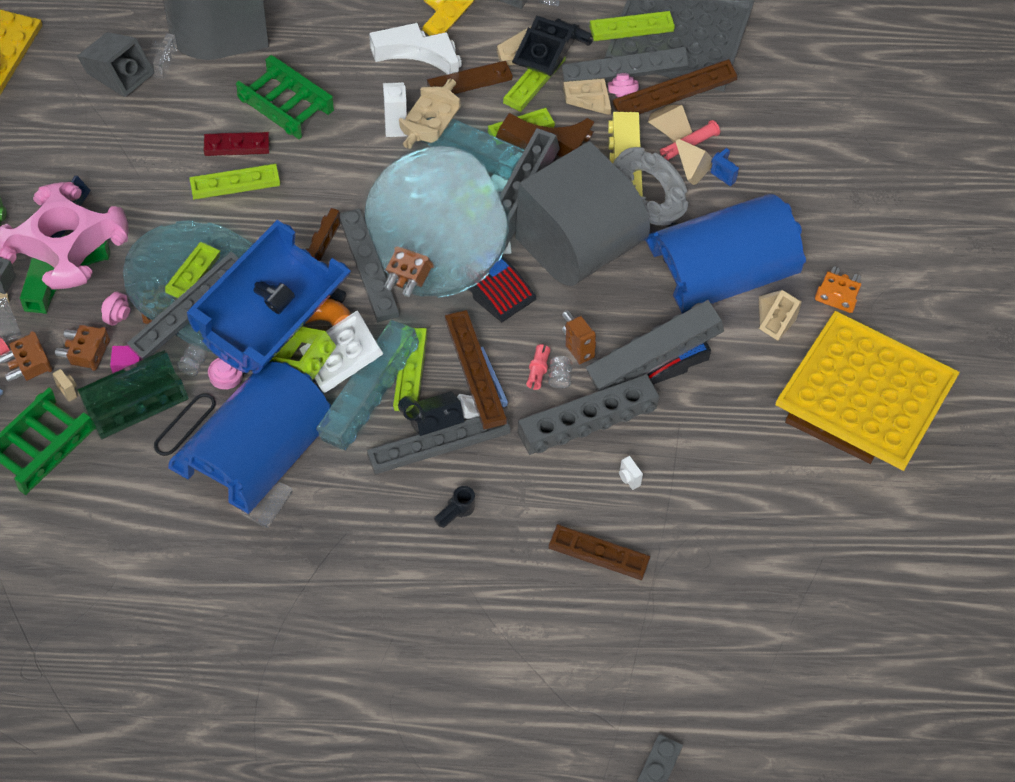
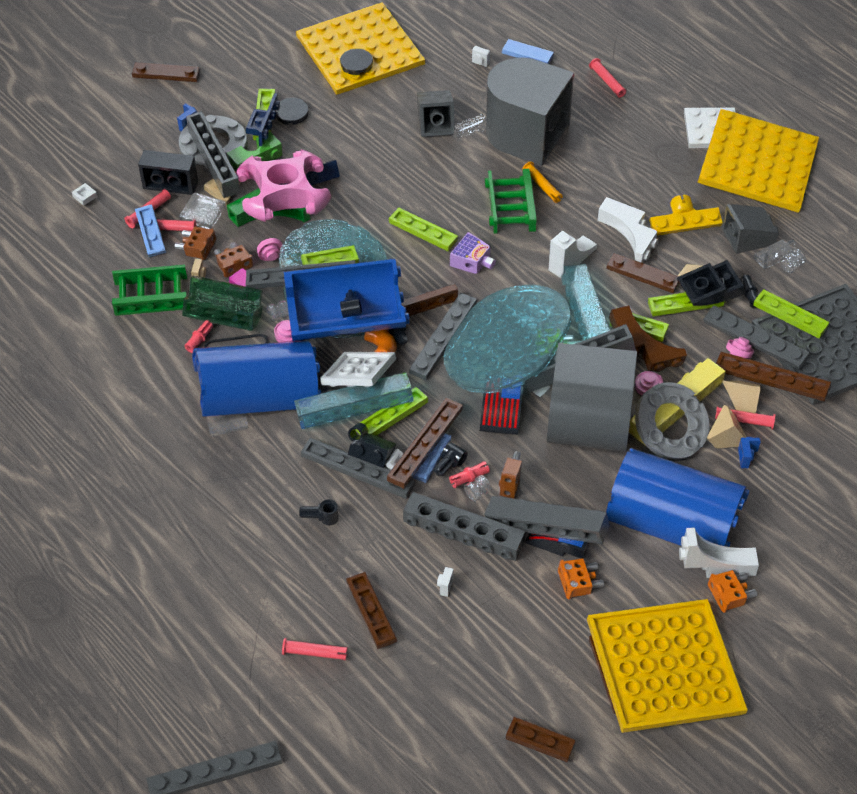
camera: 50 degrees right, 5 degrees down
(142, 446) = (198, 336): none -> coral axle
(236, 143) = (452, 209): dark red plate -> none
(293, 60) = (543, 183): none -> light orange pin
(309, 171) = (471, 255): none -> lavender torso
(320, 347) = (343, 352): lime window -> none
(407, 267) = (453, 354): dark orange piece -> none
(436, 103) = (591, 270): tan plate -> none
(507, 364) = (451, 457): none -> black axle
(588, 95) = (710, 337): tan wing -> none
(594, 629) = (313, 649): none -> coral pin
(722, 379) = (576, 578): none -> orange piece
(778, 313) = (665, 571): tan slope -> none
(807, 274) = (714, 558): none -> white arch
(850, 533) = (540, 739): none -> reddish brown plate

